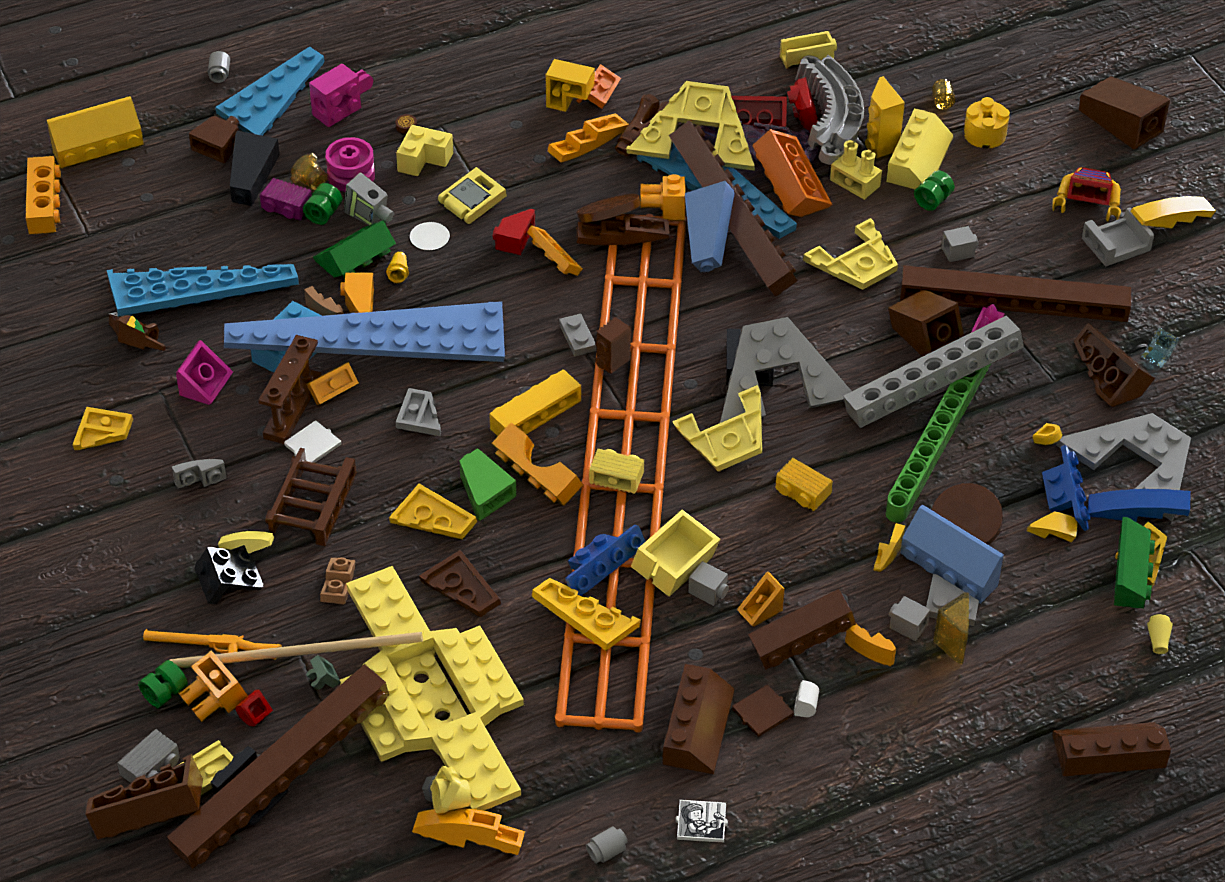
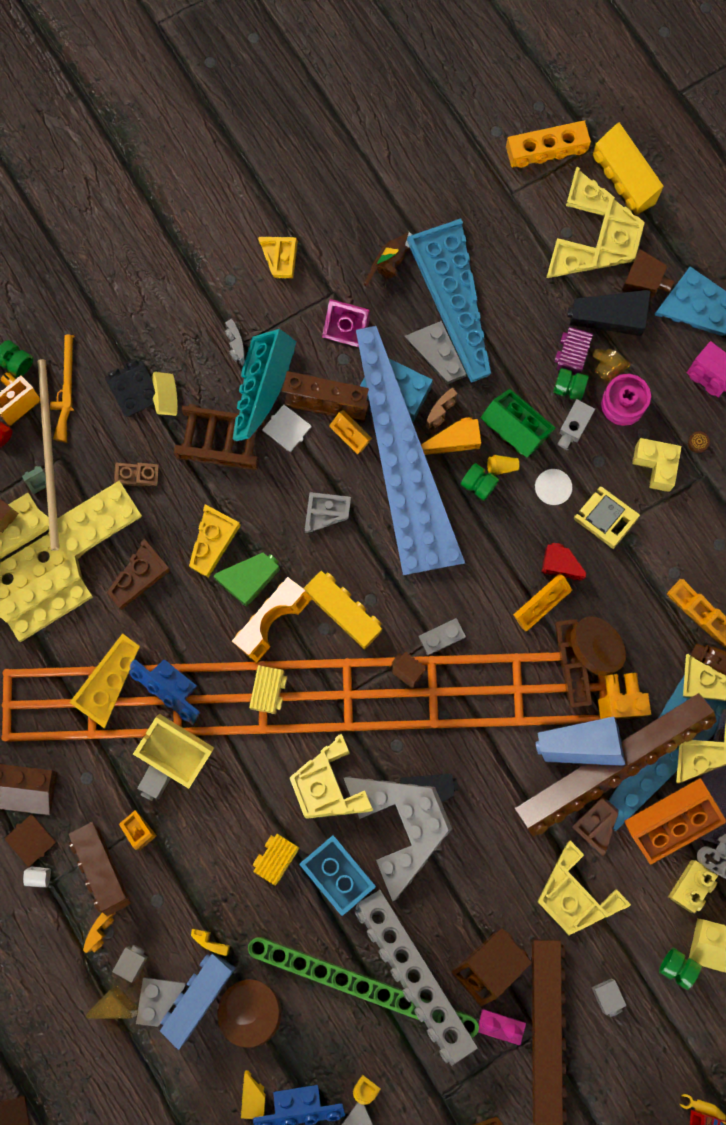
camera: 85 degrees right, 30 degrees up
(159, 153) = (617, 238): none -> light yellow wing
(256, 445) = (263, 379): none -> teal wedge
(257, 305) = (437, 349): none -> light grey wing
(414, 283) = (479, 481): none -> green wheel
(789, 231) = (597, 824): none -> reddish brown wing
(825, 430) = (337, 875): none -> dark azure brick

